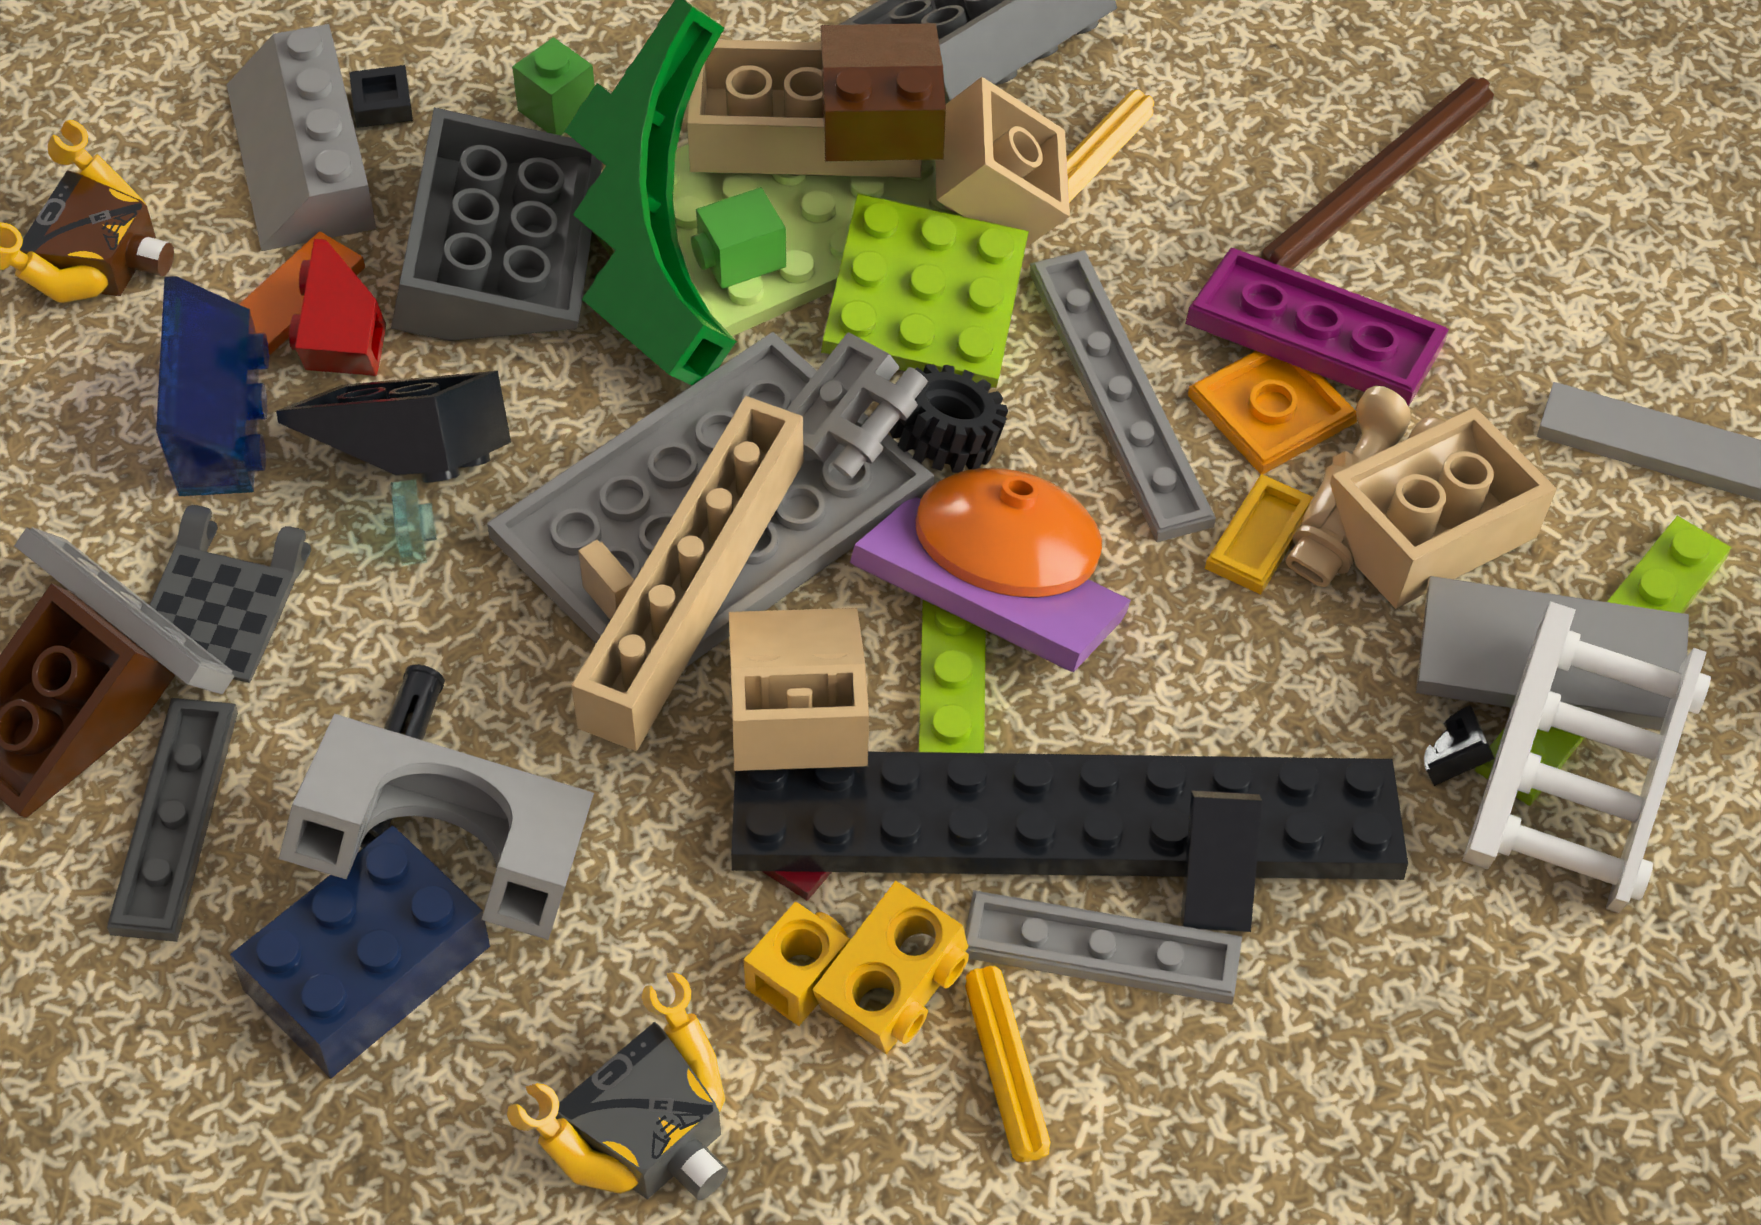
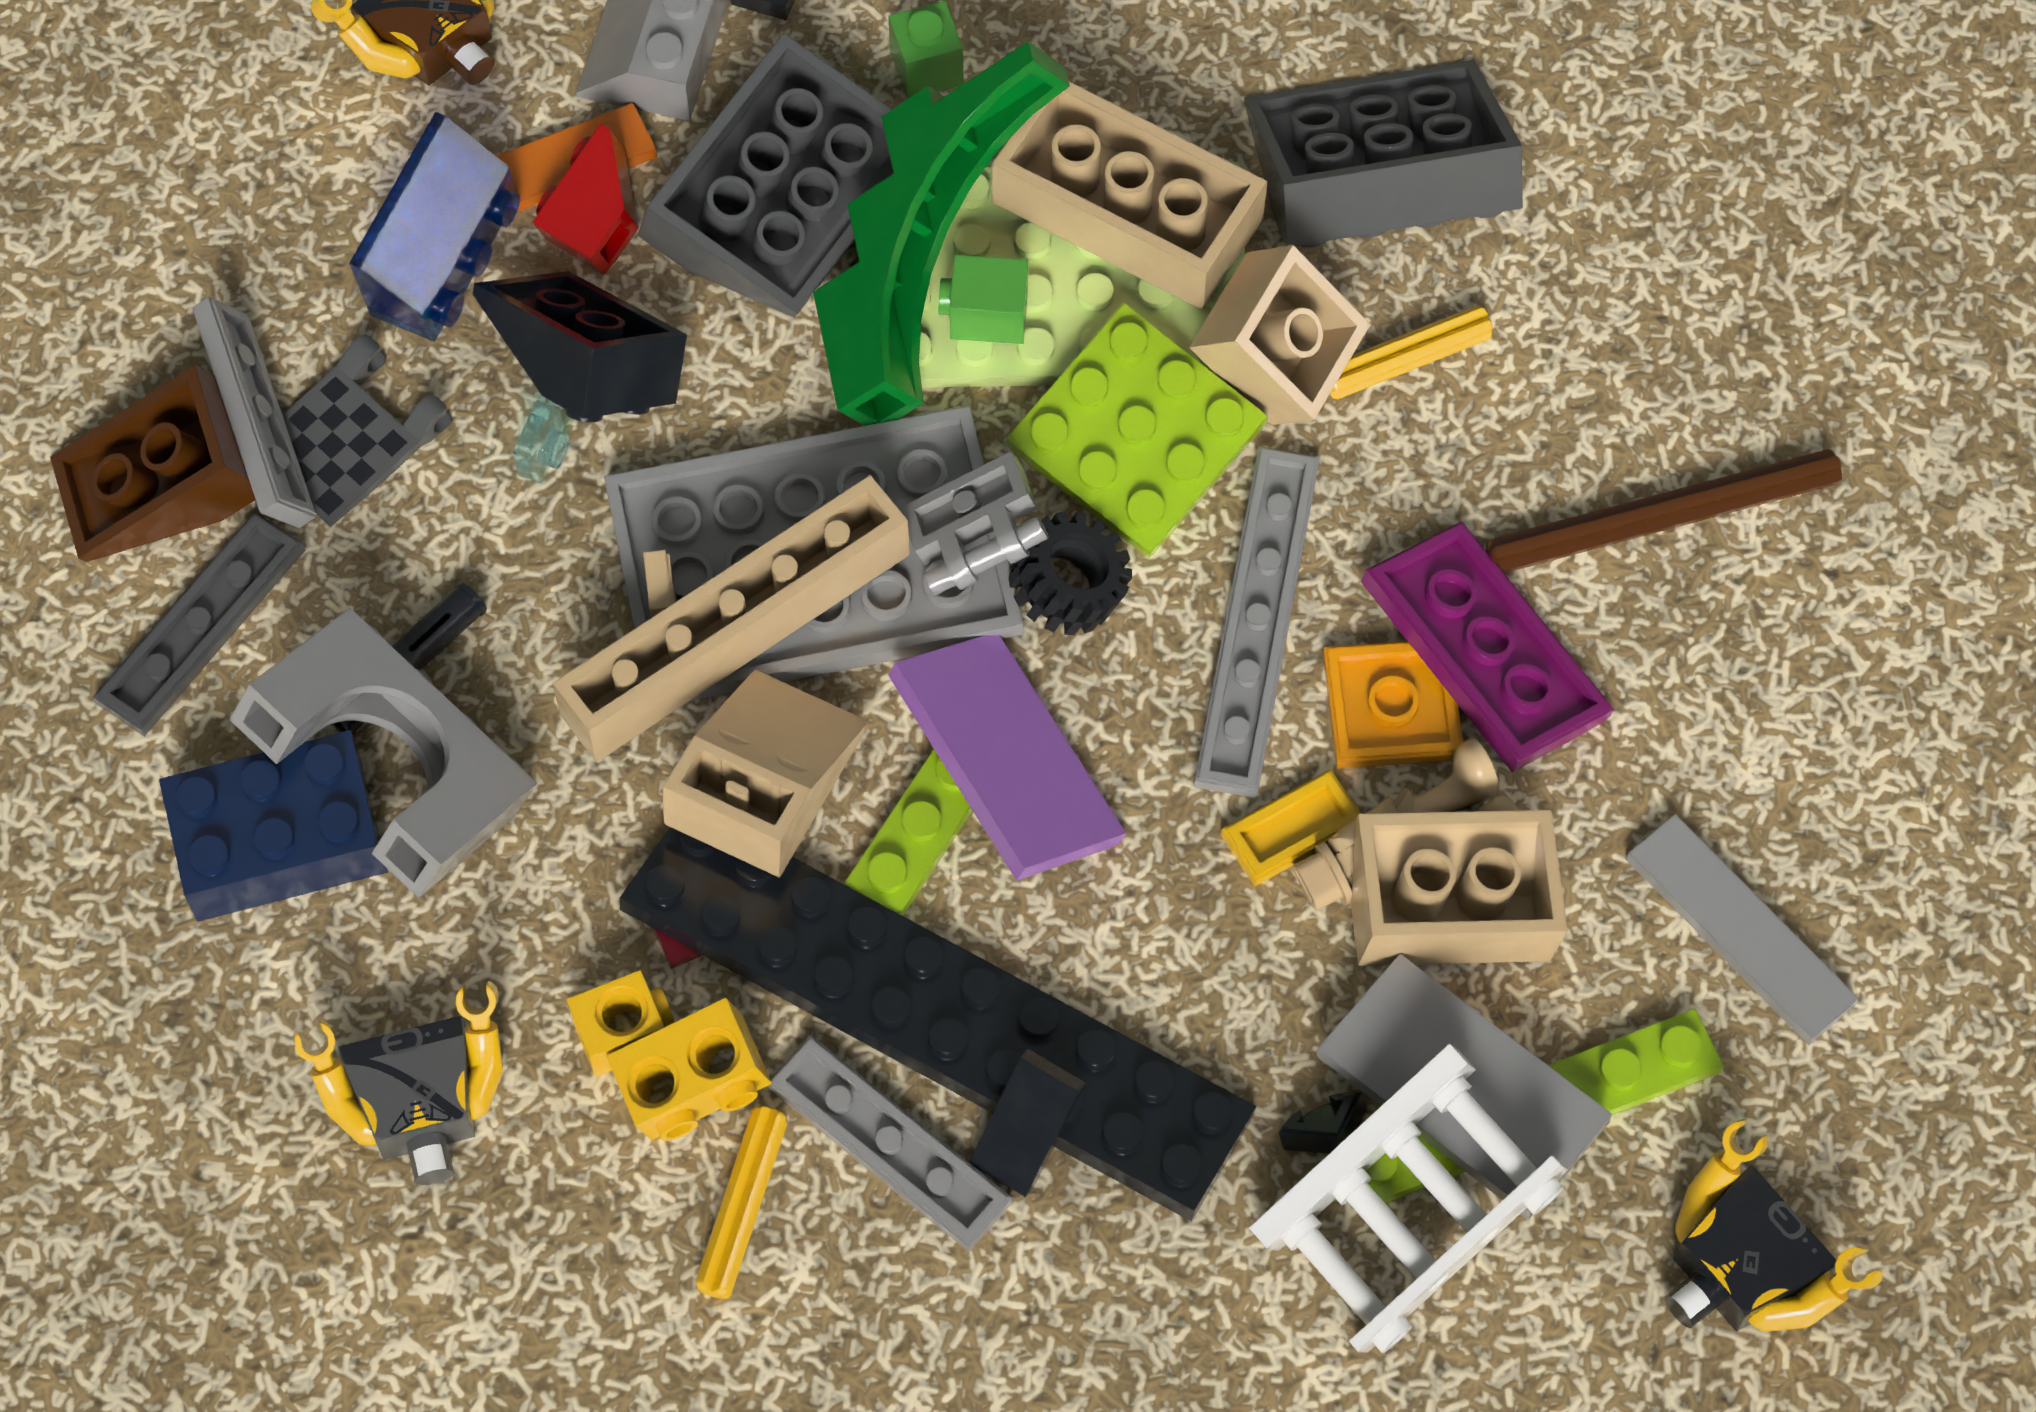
camera: 30 degrees right, 10 degrees up
(882, 92) = (1185, 213): reddish brown slope -> none
(1008, 532) = (1042, 734): orange dish -> none

